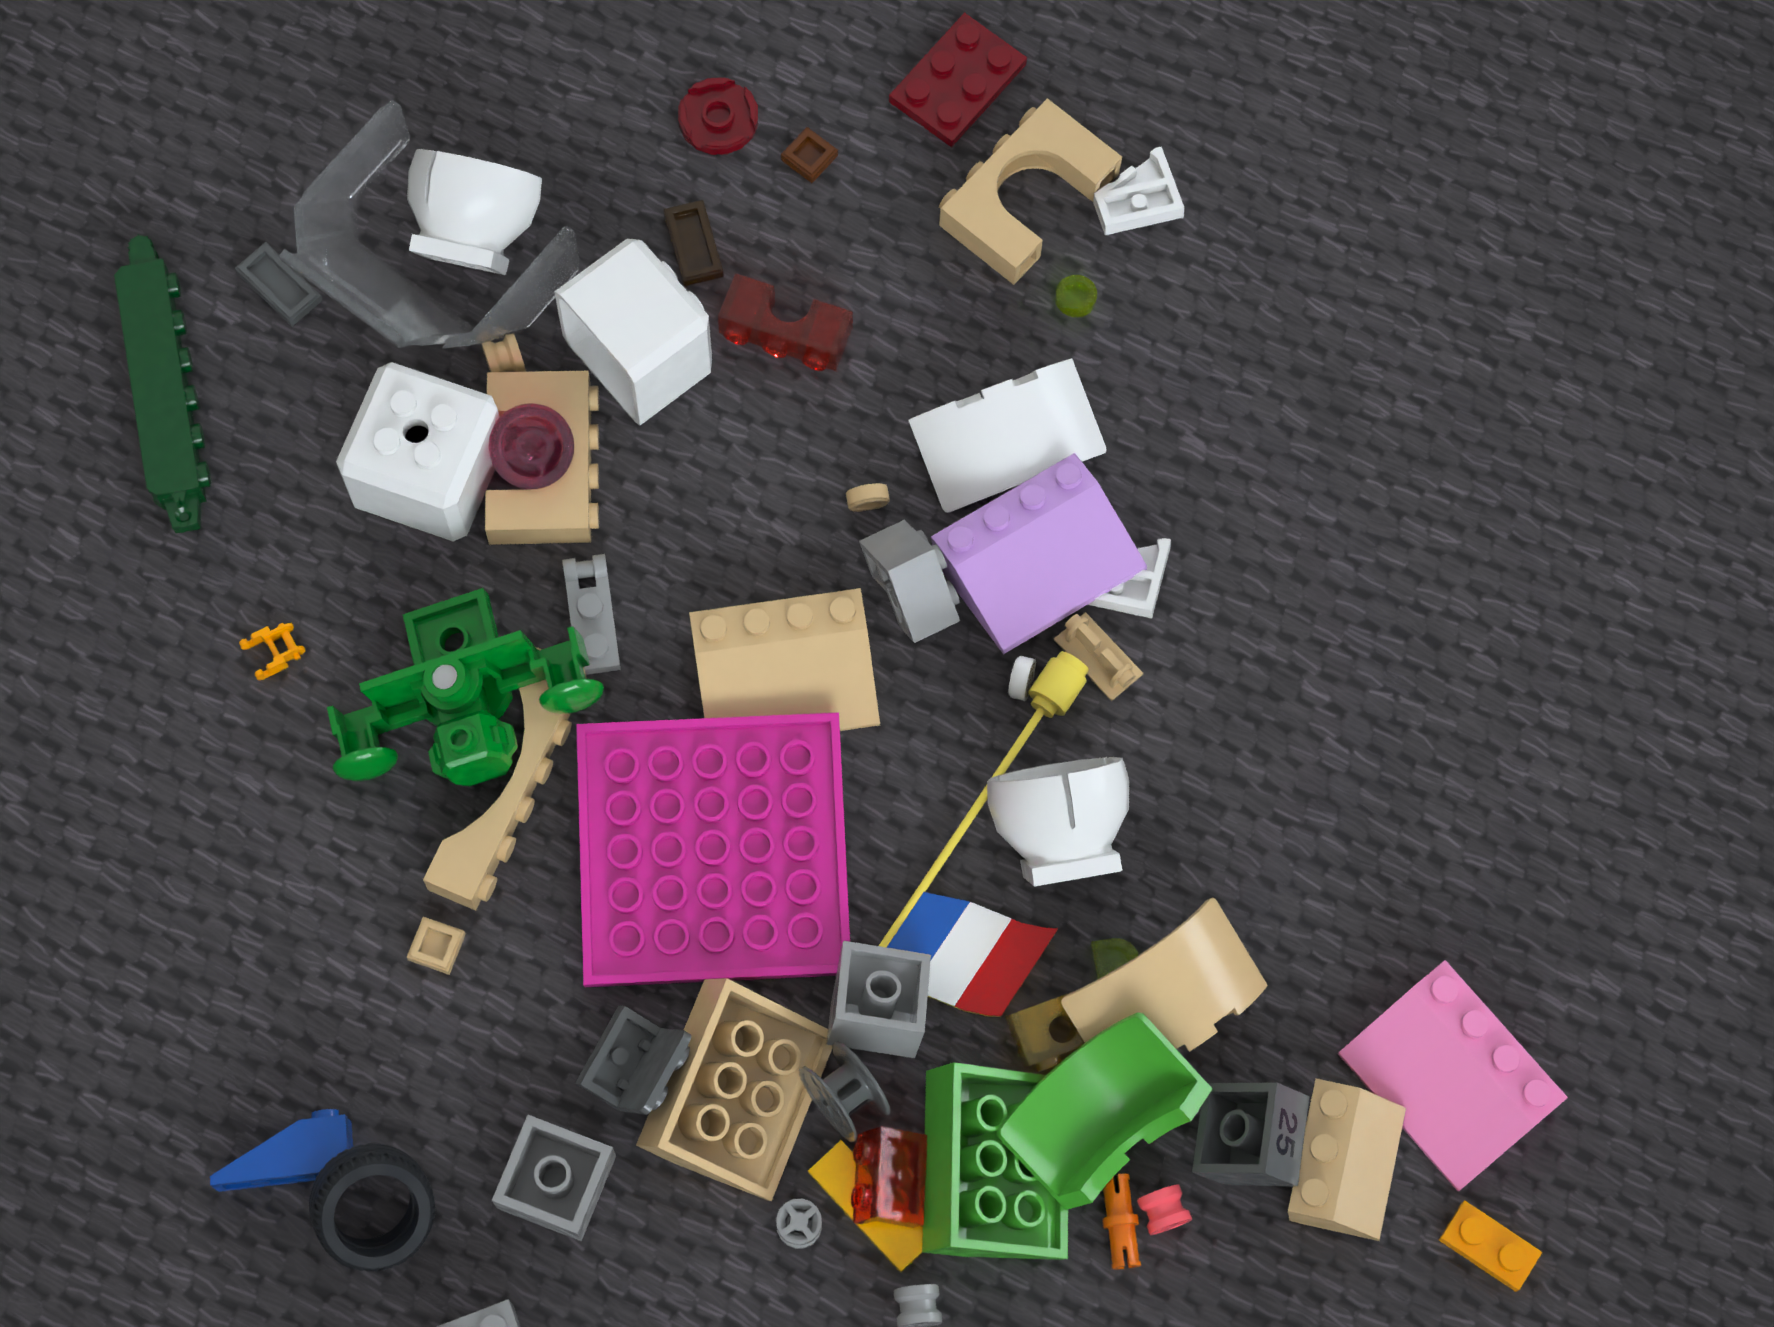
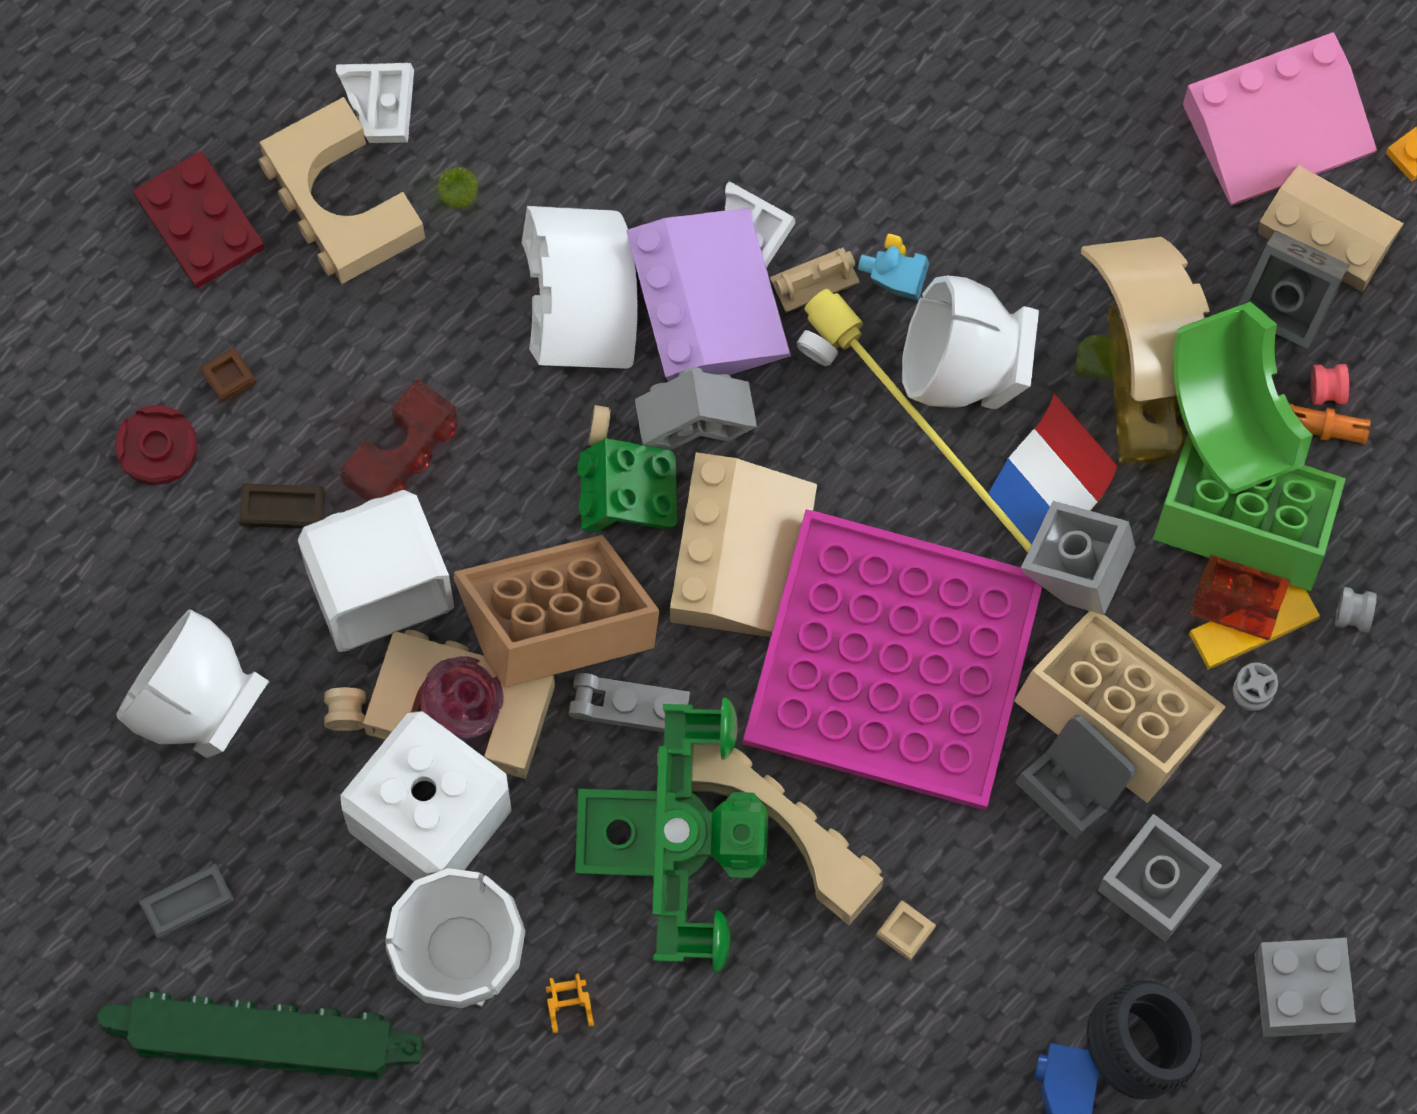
camera: 70 degrees left, 0 degrees up
(284, 516) = (455, 938): none -> white plate
(375, 290) = (253, 792): clear piece -> none
(655, 509) = (557, 610): none -> medium nougat slope
(814, 544) = (627, 485): none -> green bracket
(844, 1091) = (1156, 607): dark grey piece -> none
(1129, 729) = (896, 272): none -> medium azure piece

